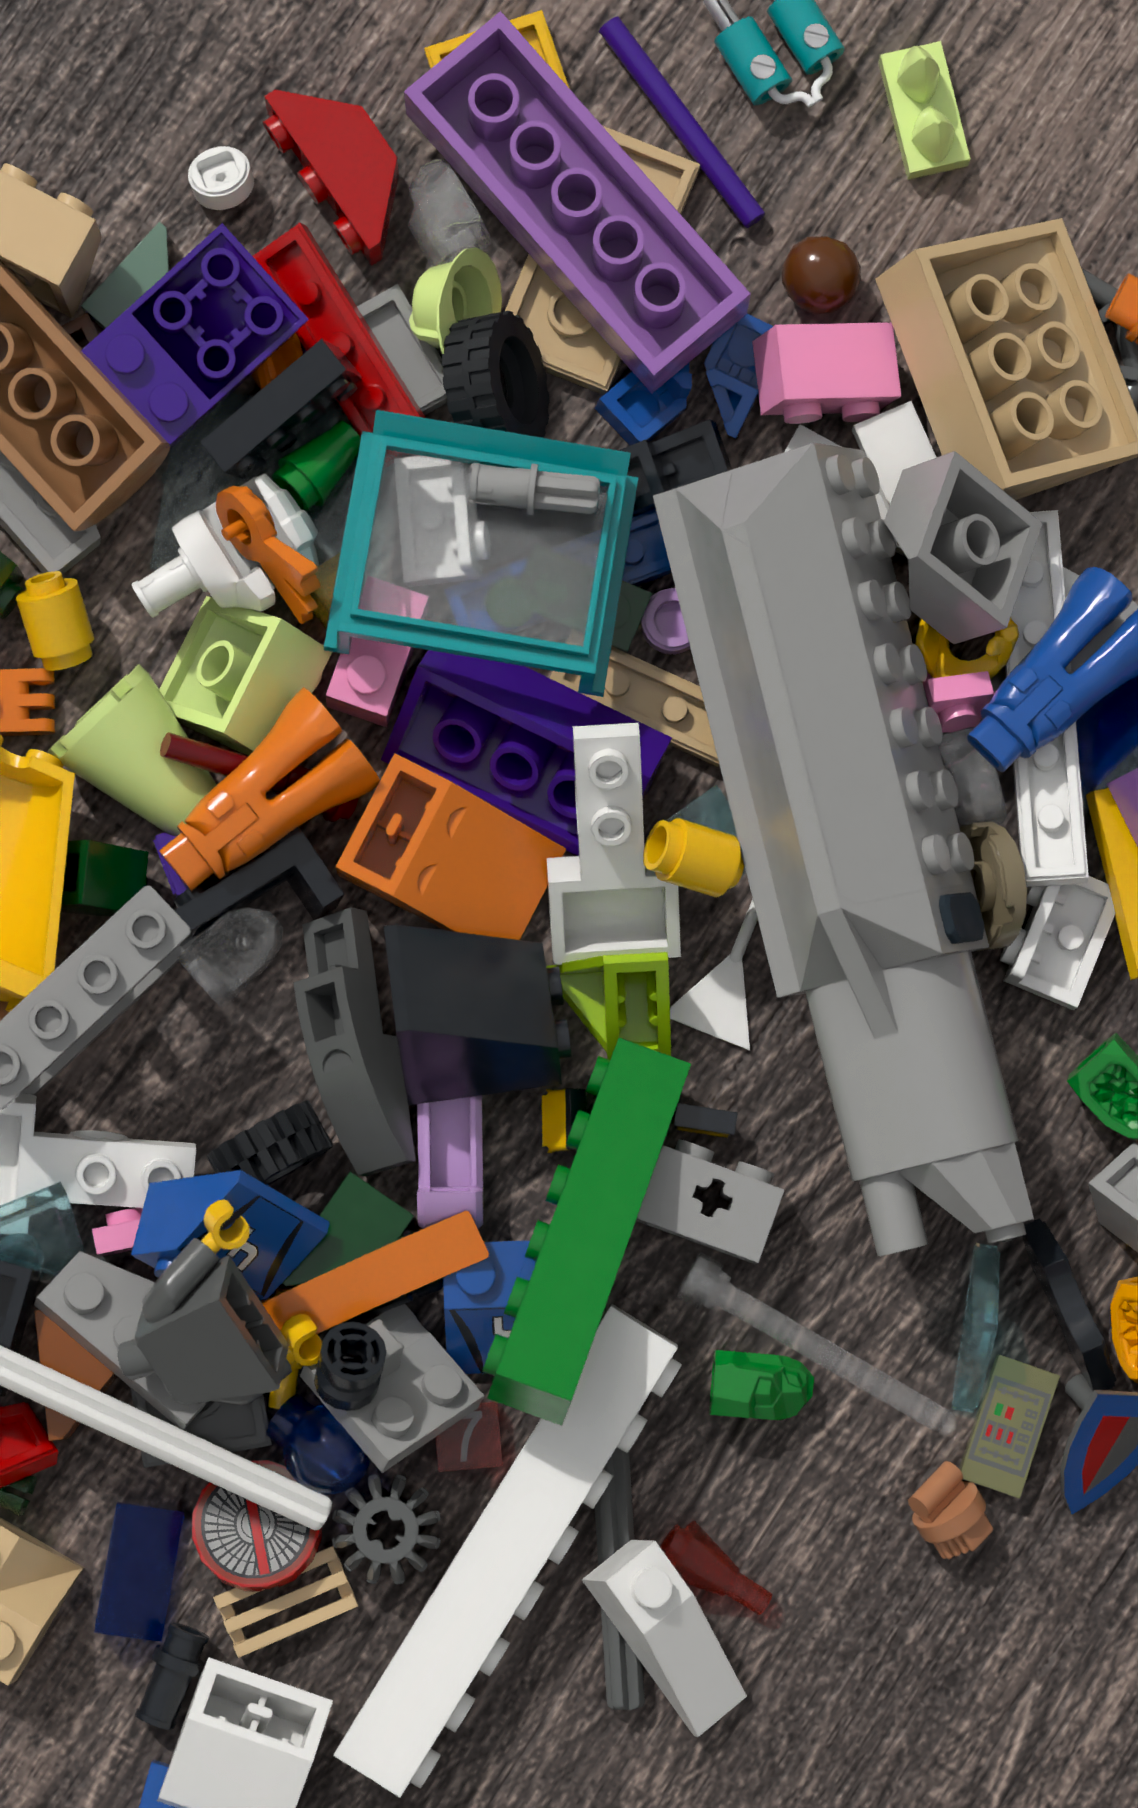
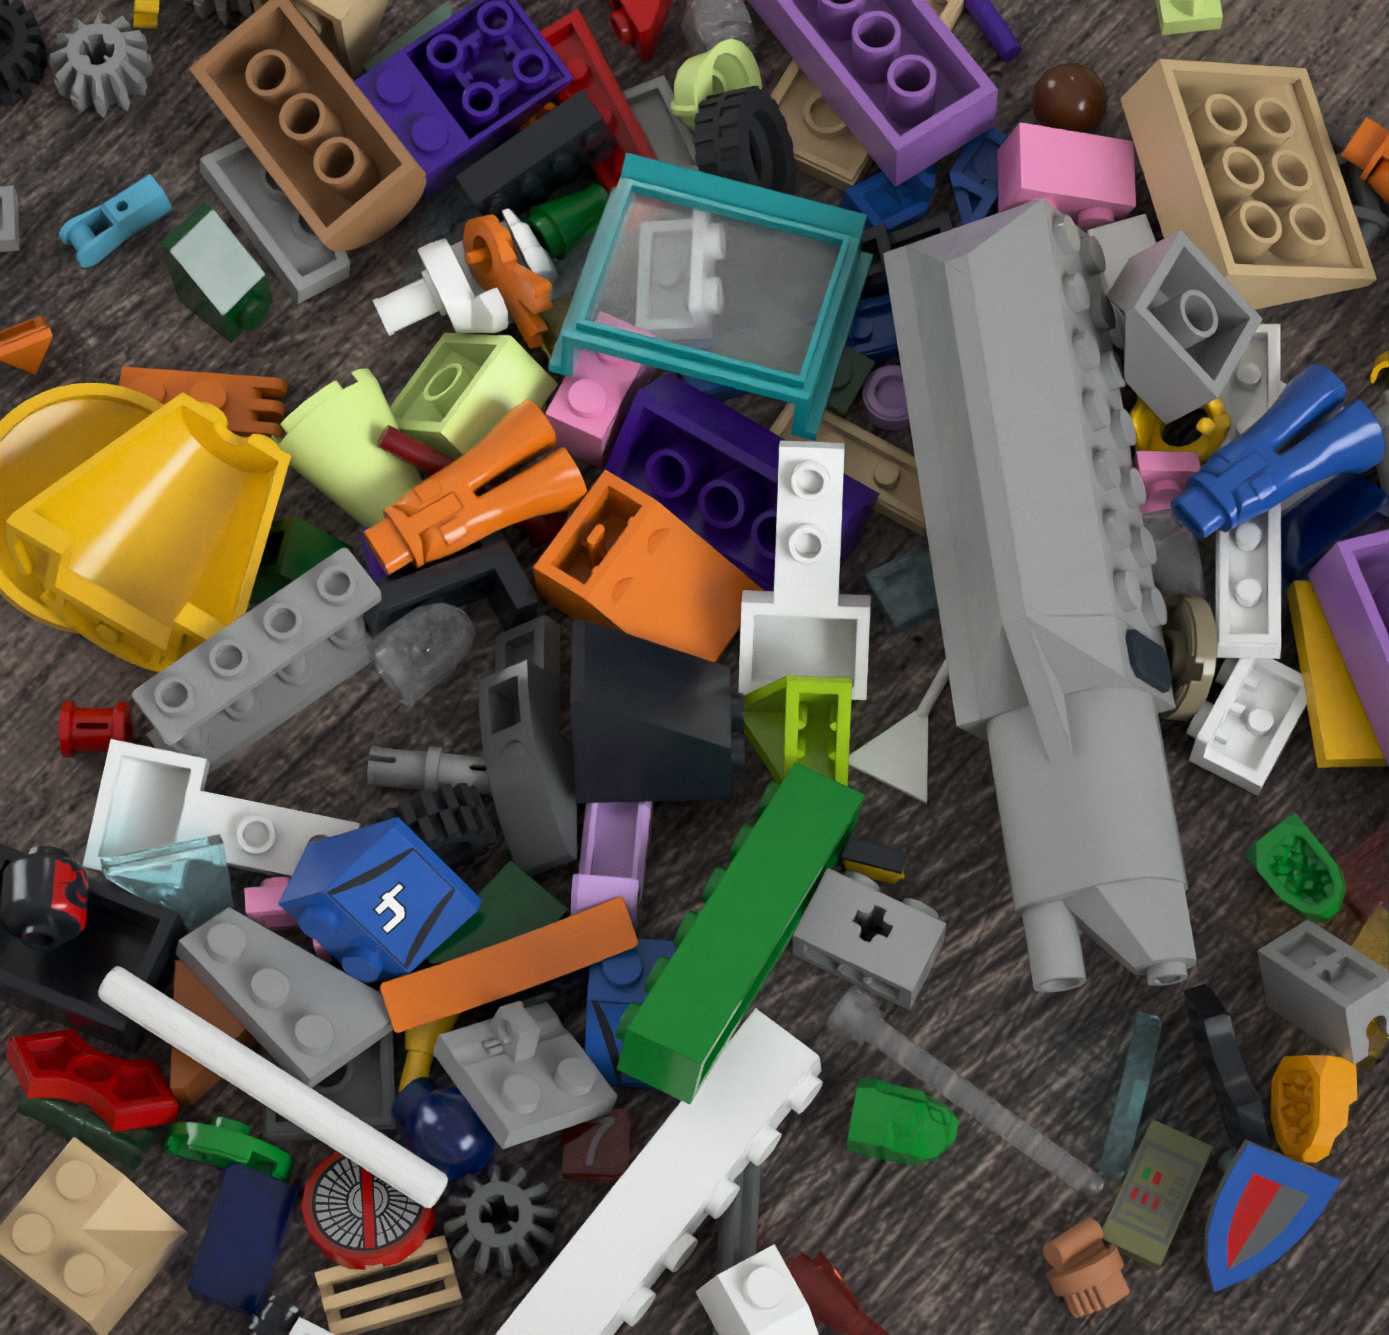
camera: 15 degrees right, 15 degrees down
(56, 620) = (295, 332): yellow brick -> none
(112, 1483) = (225, 1143): none -> green plate
(210, 1330) = (346, 975): dark grey torso -> none
(254, 1075) = (426, 769): none -> light grey pin
(348, 1381) = (483, 1033): black wheel -> none
(533, 489) = (766, 233): light grey axle -> none
(558, 1116) = (723, 835): yellow piece -> none
(693, 856) = (888, 586): yellow brick -> none

